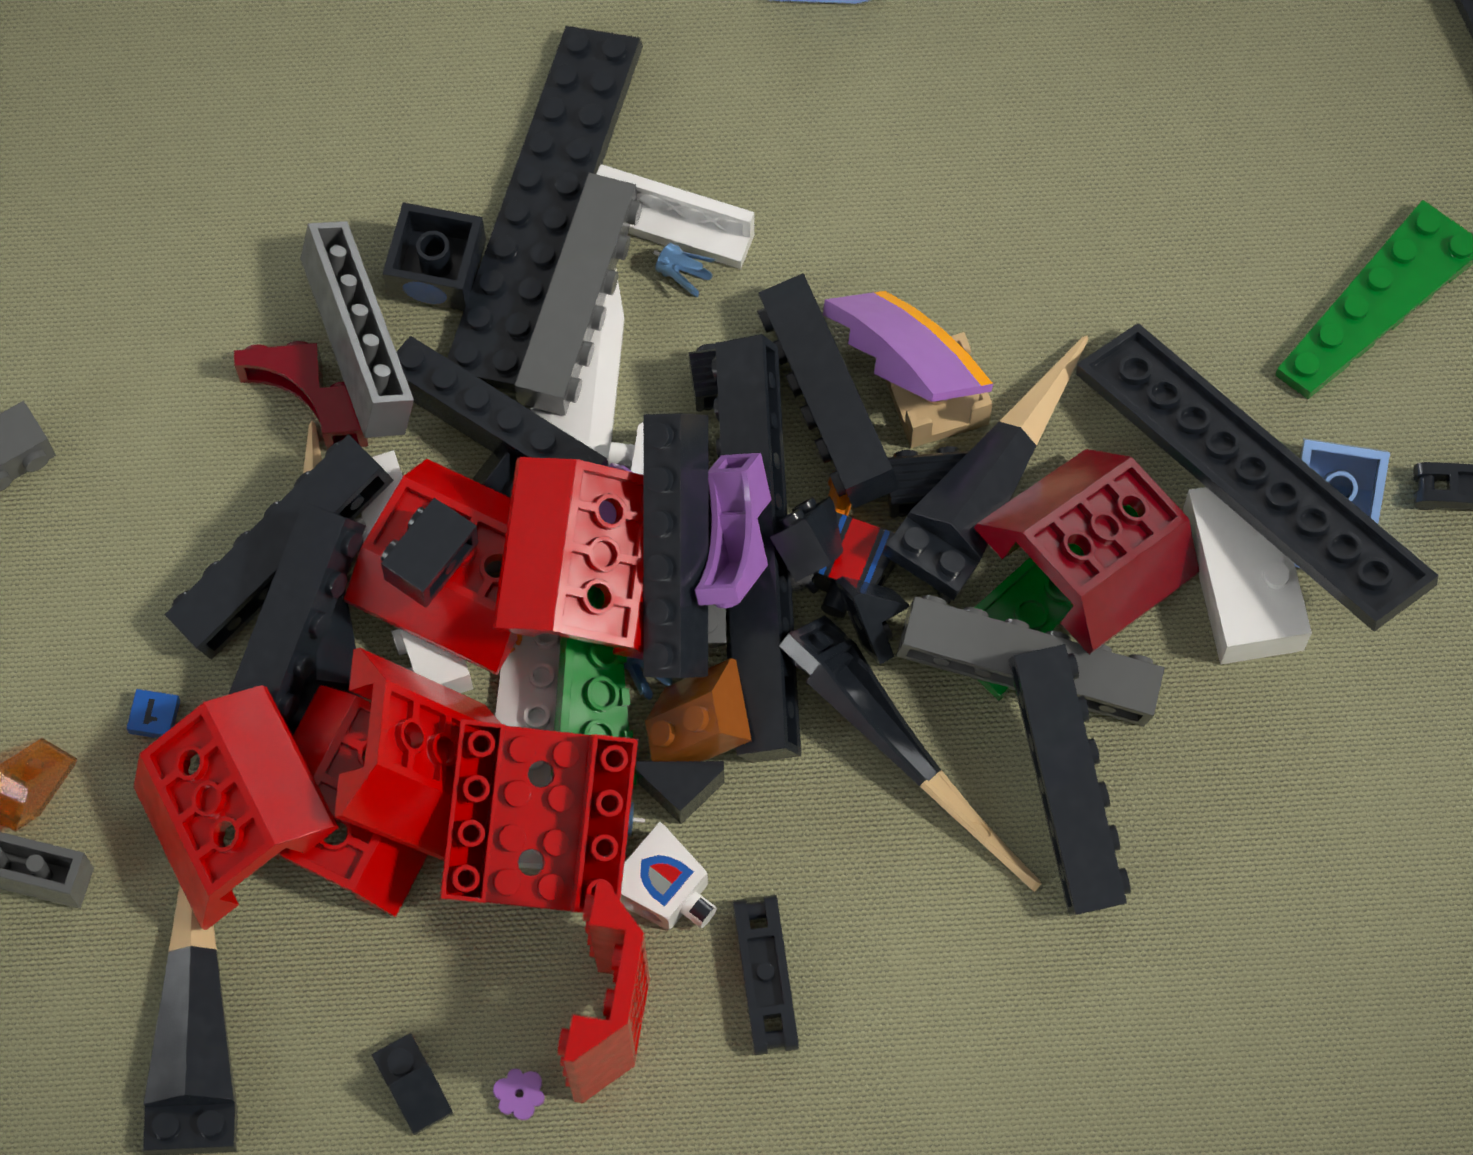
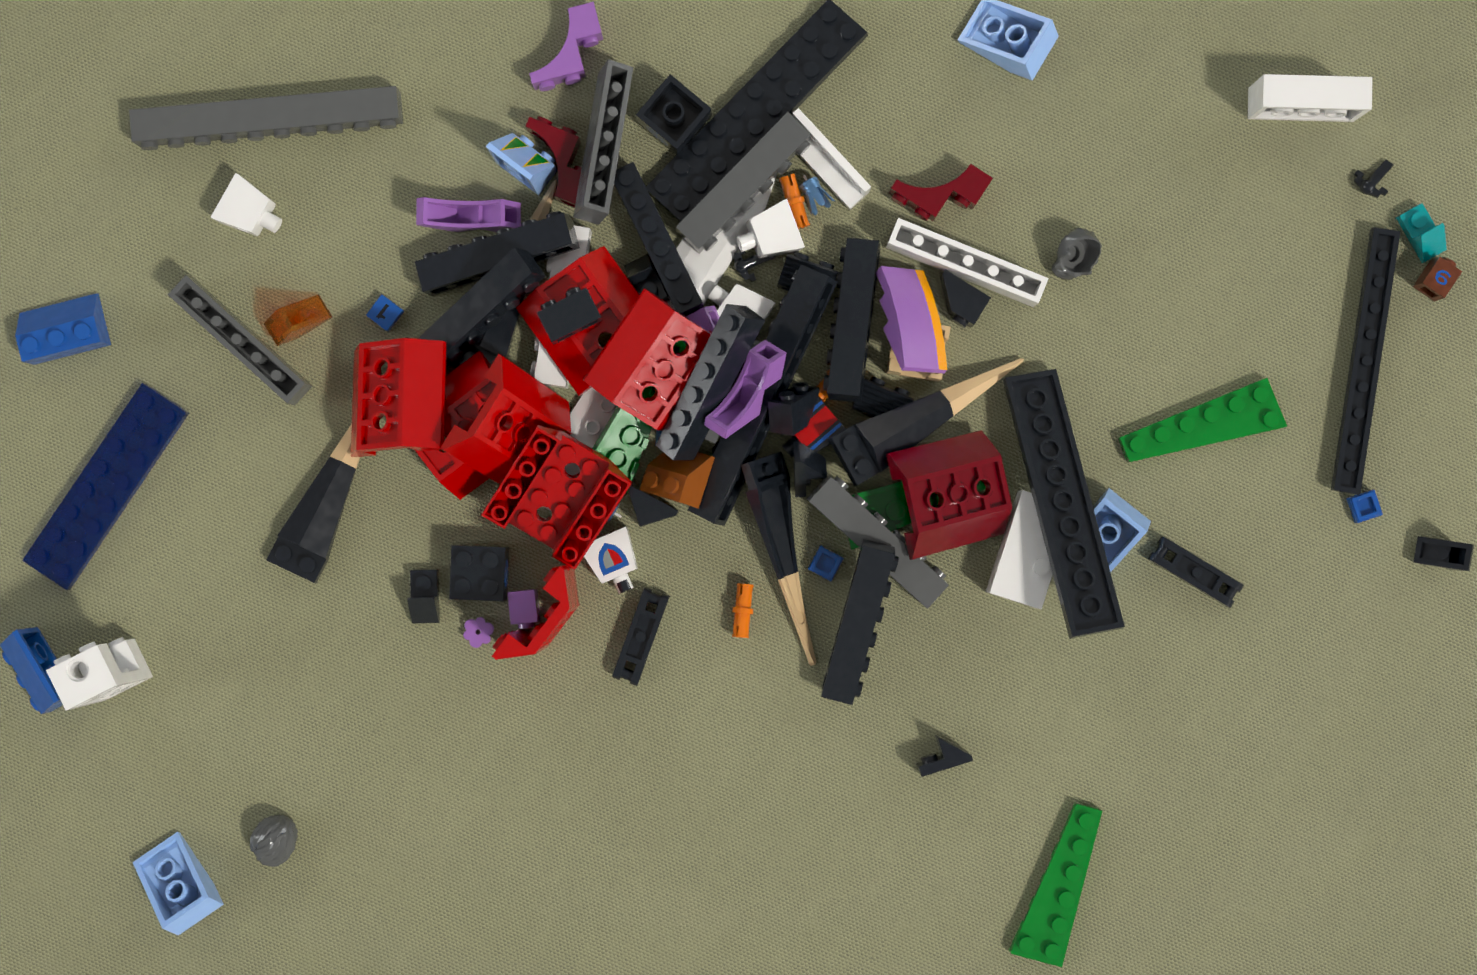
camera: 25 degrees right, 20 degrees up
(204, 524) = (468, 215): none -> medium lavender arch
(254, 416) = (522, 161): none -> light blue slope
(255, 265) = (567, 65): none -> medium lavender arch
(478, 1001) = (479, 573): none -> black brick
(560, 1005) = (524, 608): none -> medium lavender brick
(633, 404) = (741, 265): none -> black piece
(652, 338) = (772, 232): none -> white torso
(659, 289) = (795, 200): none -> orange pin
(841, 200) = (929, 201): none -> dark red arch
(893, 860) = (742, 610): none -> orange pin
(938, 248) = (967, 262): none -> white brick
(958, 298) = (962, 300): none -> black slope
(974, 738) = (825, 563): none -> blue tile
(1078, 170) = (1077, 254): none -> dark grey hair
(1307, 907) = (950, 757): none -> black slope

